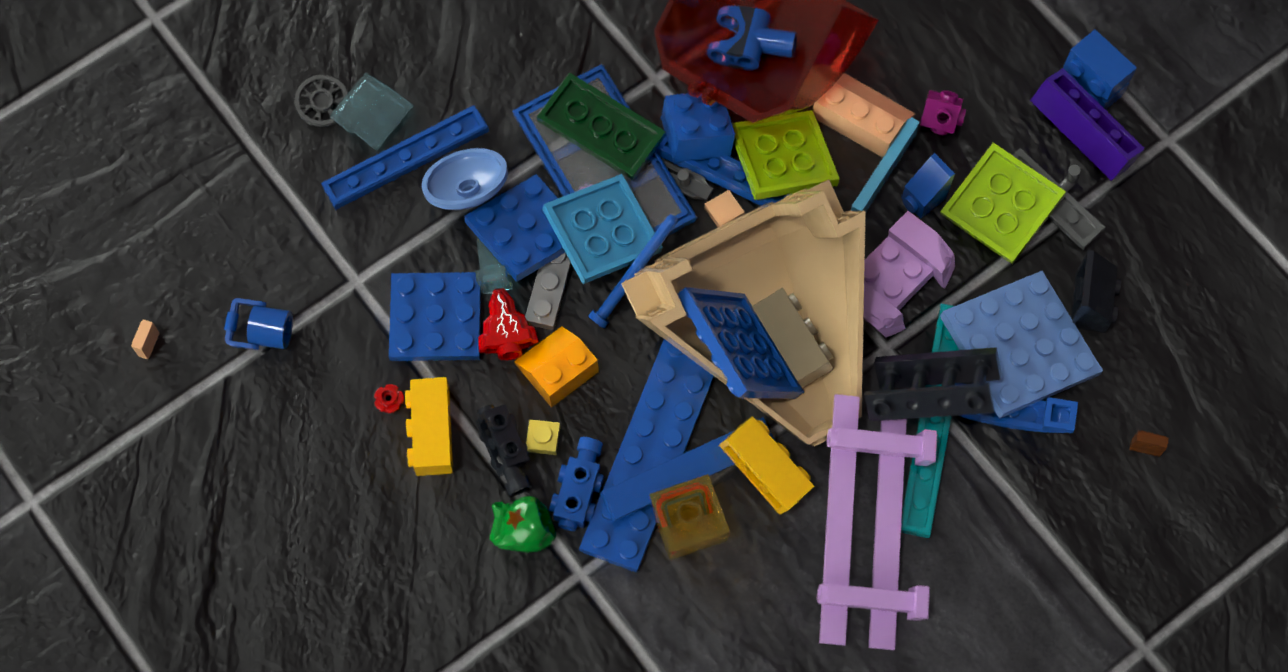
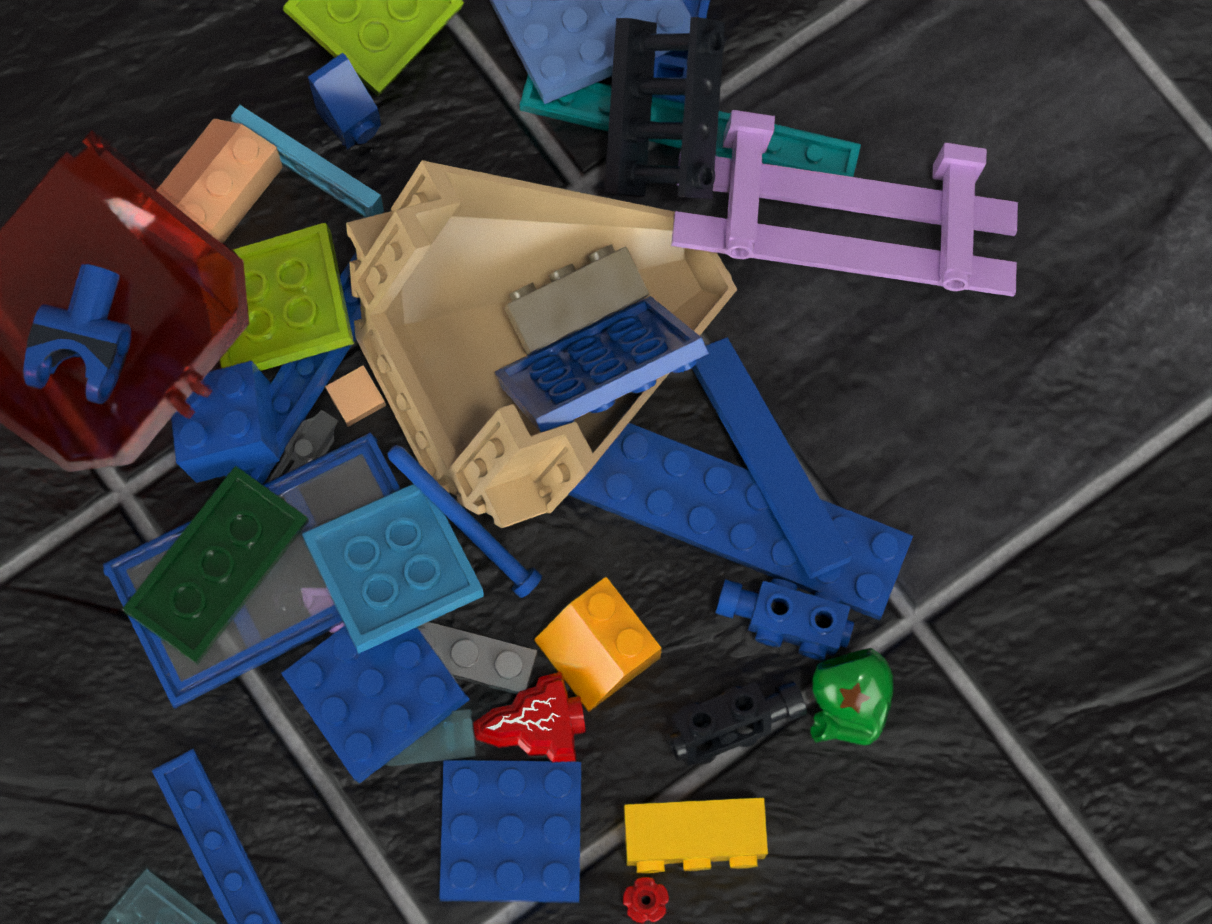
camera: 90 degrees left, 5 degrees up
(465, 179) = (271, 781): medium blue dish -> none
(543, 437) = (709, 668): light yellow plate -> none
(689, 517) = (847, 454): clear yellow slope -> none
(767, 465) = (766, 347): yellow brick -> none
(901, 269) = (450, 131): lavender piece -> none
(943, 112) = (221, 76): magenta brick -> none

